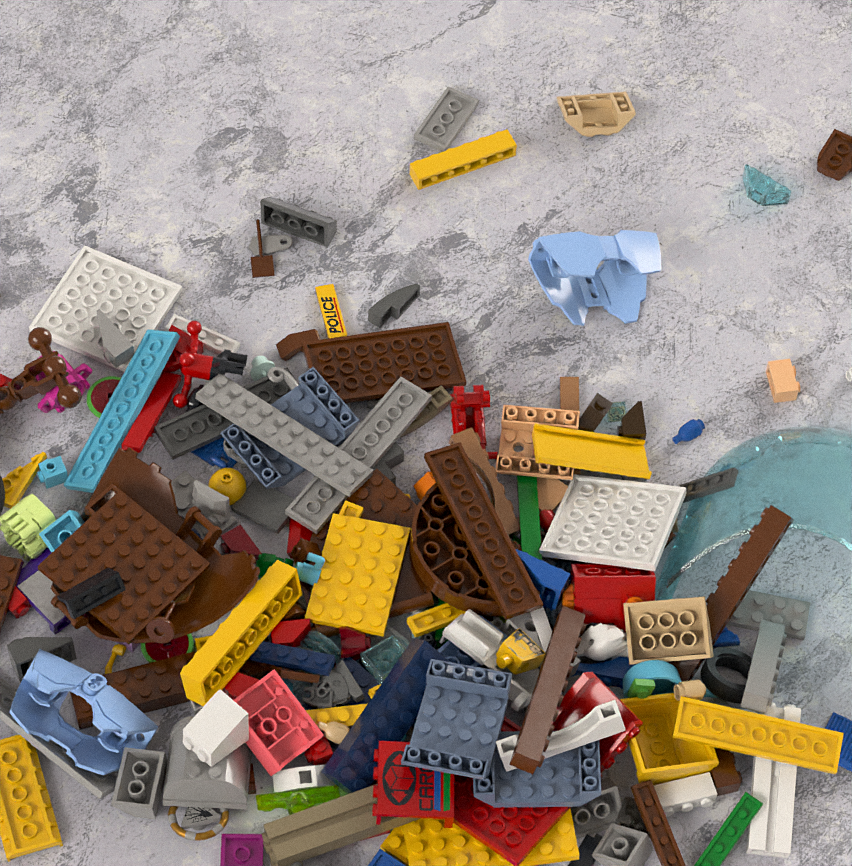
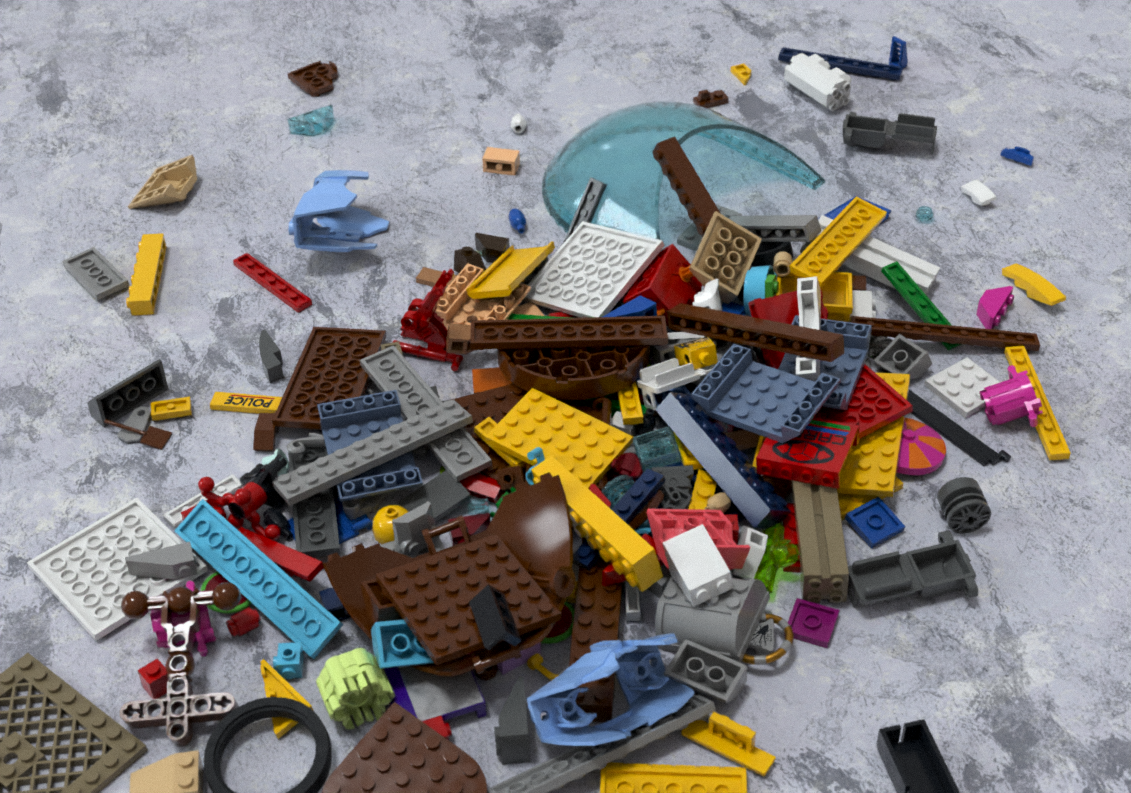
camera: 65 degrees left, 15 degrees down
(80, 422) = (243, 622): none -> red brick
(80, 826) = (730, 741): none -> yellow bracket
(268, 542) = (478, 506): none -> clear light blue tile
(298, 261) = (171, 408): none -> yellow plate
(501, 262) = (272, 282): none -> red tile

